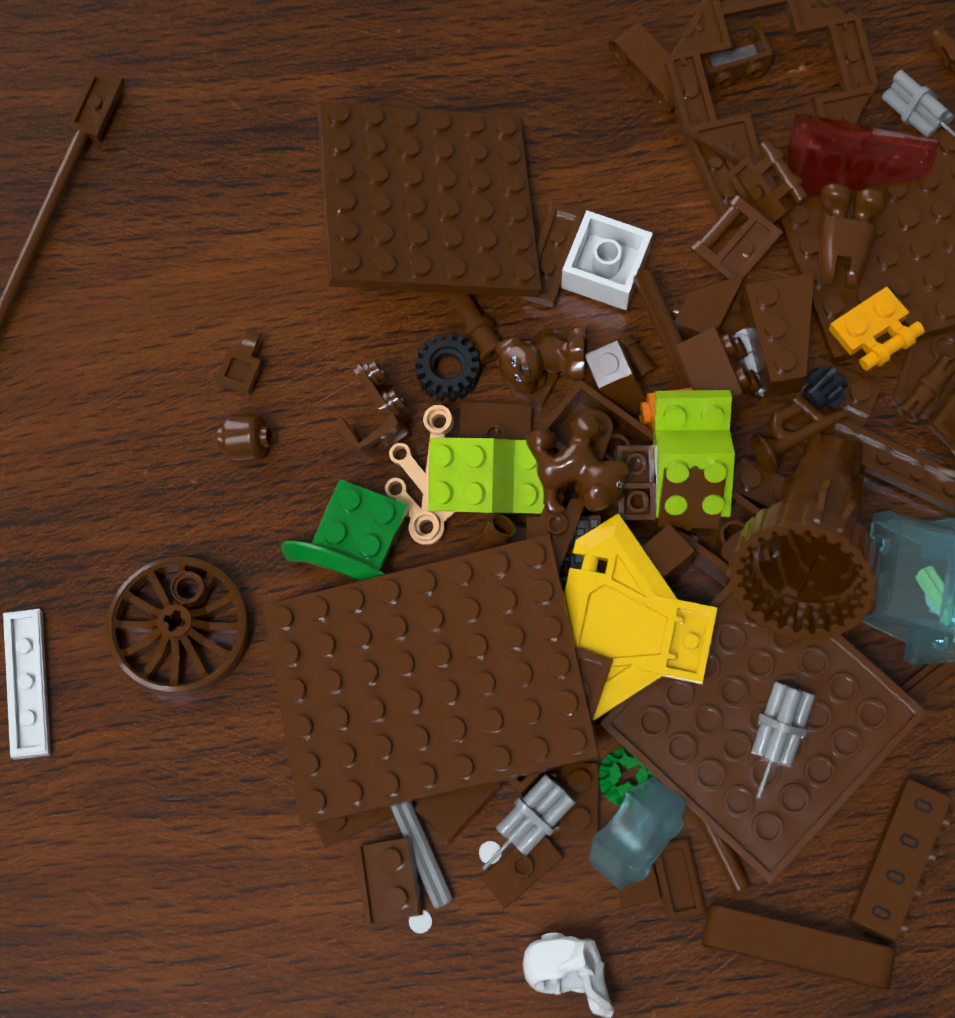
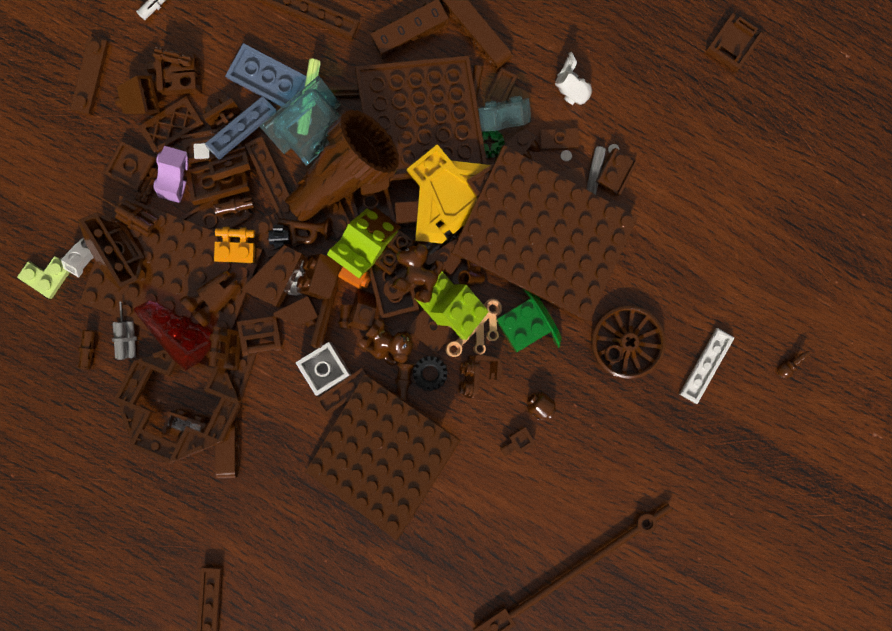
camera: 145 degrees left, 15 degrees up
(534, 816) = (542, 150): light grey piece -> none
(782, 726) = (418, 105): light grey piece -> none

